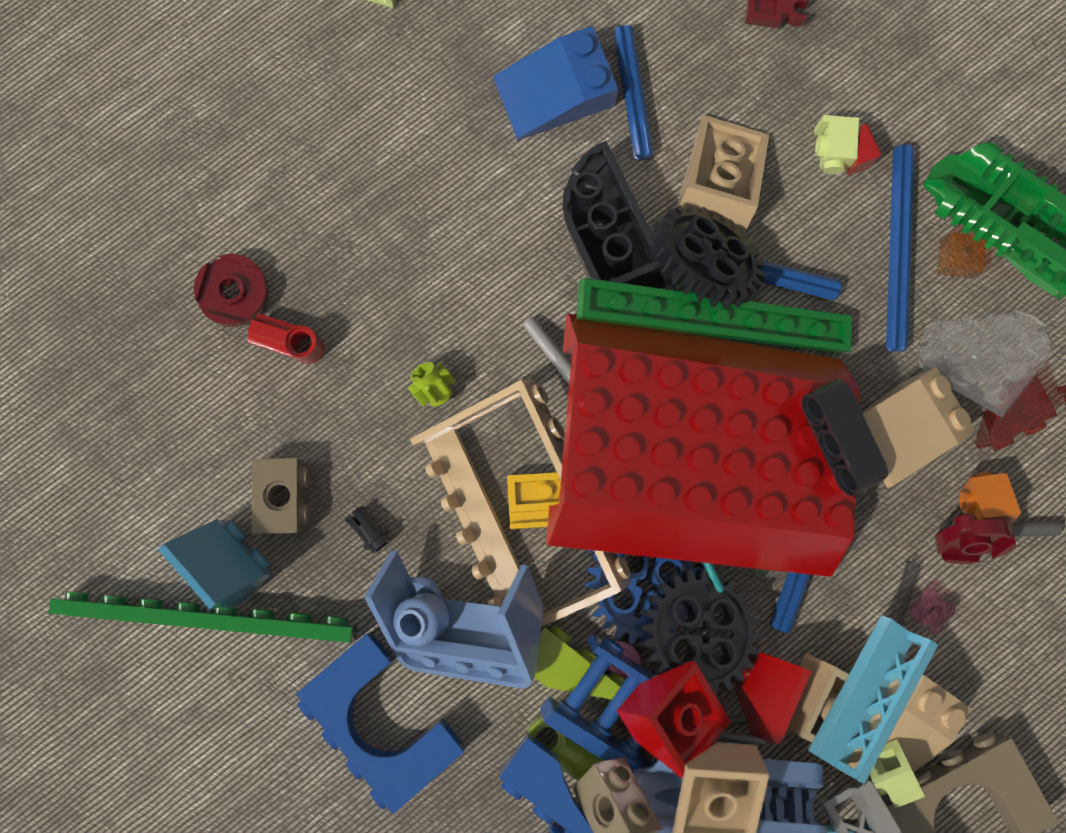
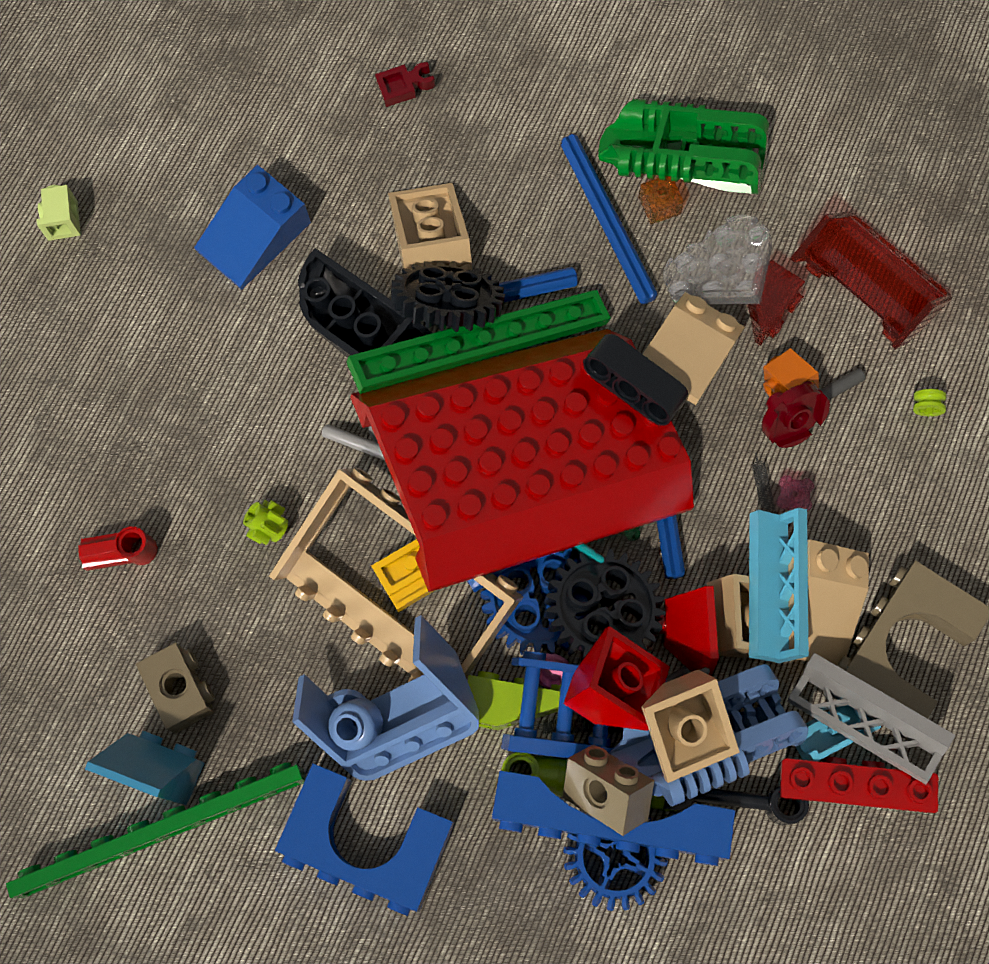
camera: 20 degrees left, 10 degrees down
(223, 272) = (33, 521): dark red plate -> none
(368, 530) = (271, 676): black pin -> none
(633, 92) = (321, 204): blue axle -> none
(836, 143) = (510, 161): yellowish green brick -> none
(867, 152) = (536, 157): red slope -> none
(894, 776) = (833, 639): yellowish green brick -> none

